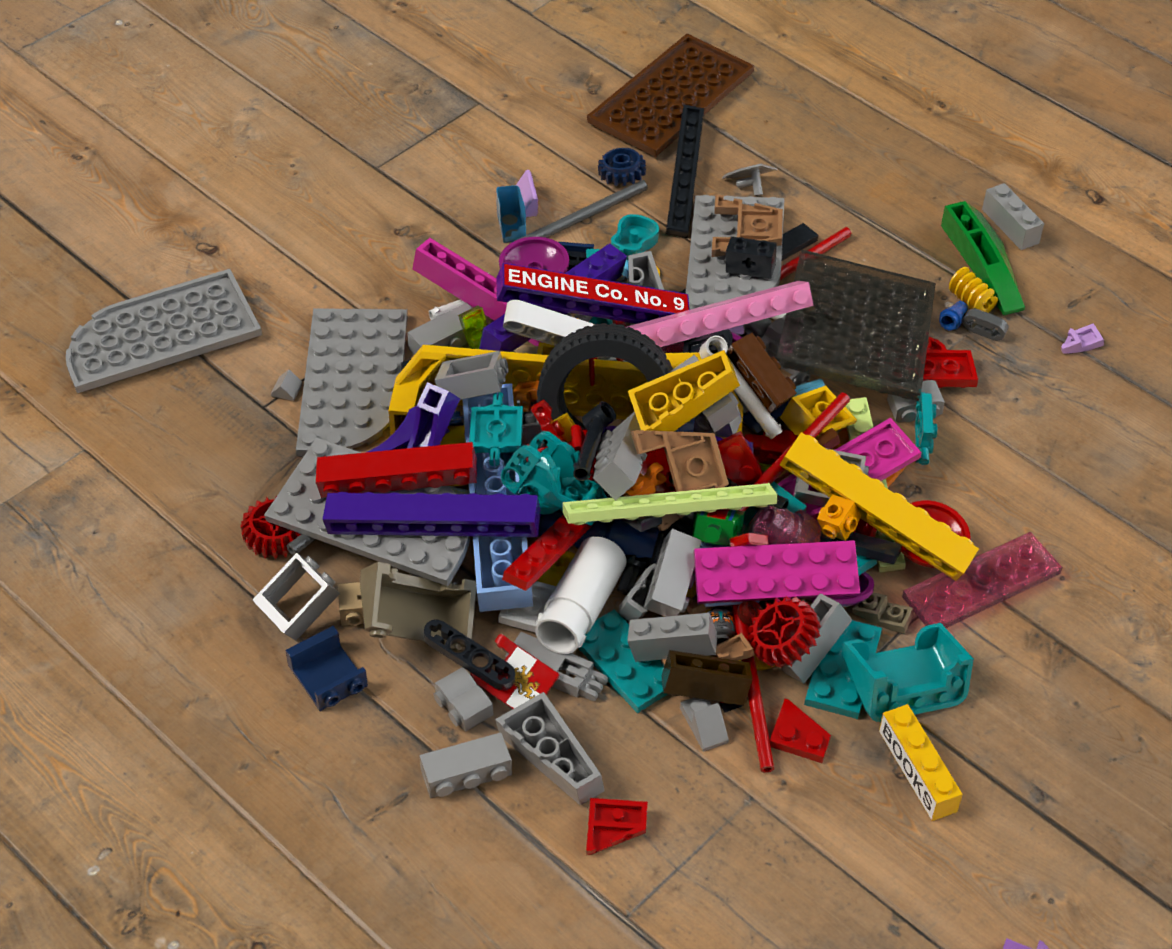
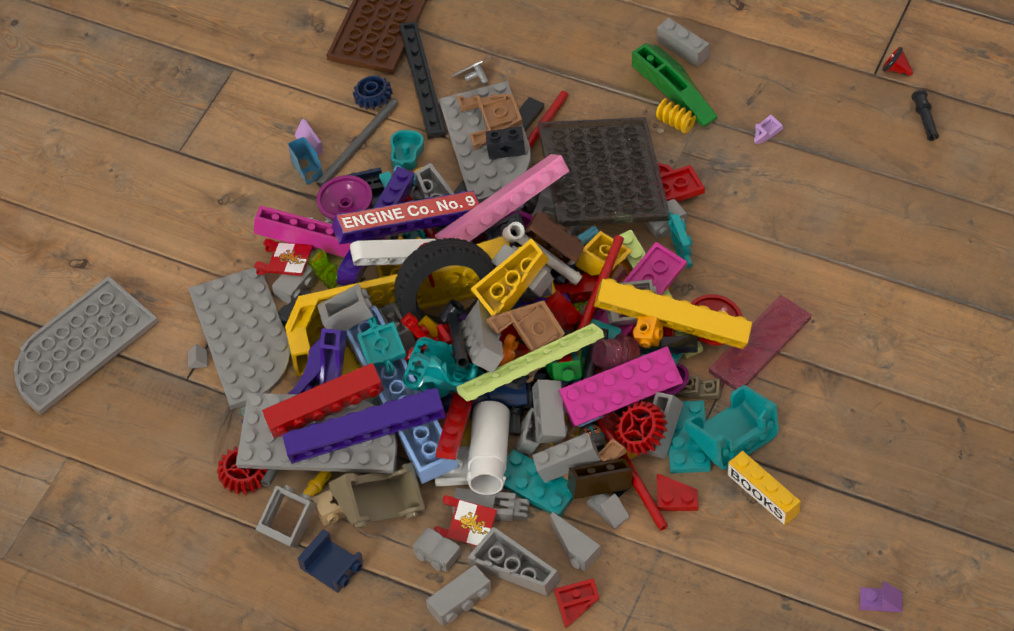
camera: 15 degrees left, 5 degrees up
(351, 573) = (316, 485): none -> yellow pin
(437, 309) = (286, 258): none -> flag
(472, 651) = (429, 513): black beam -> none
(526, 393) = (387, 306): orange plate -> none
(646, 758) = (577, 546): none -> light grey slope
(749, 539) = (594, 370): red tile -> none
(952, 316) = (668, 140): blue cone -> none
(985, 324) = (693, 140): dark grey beam -> none

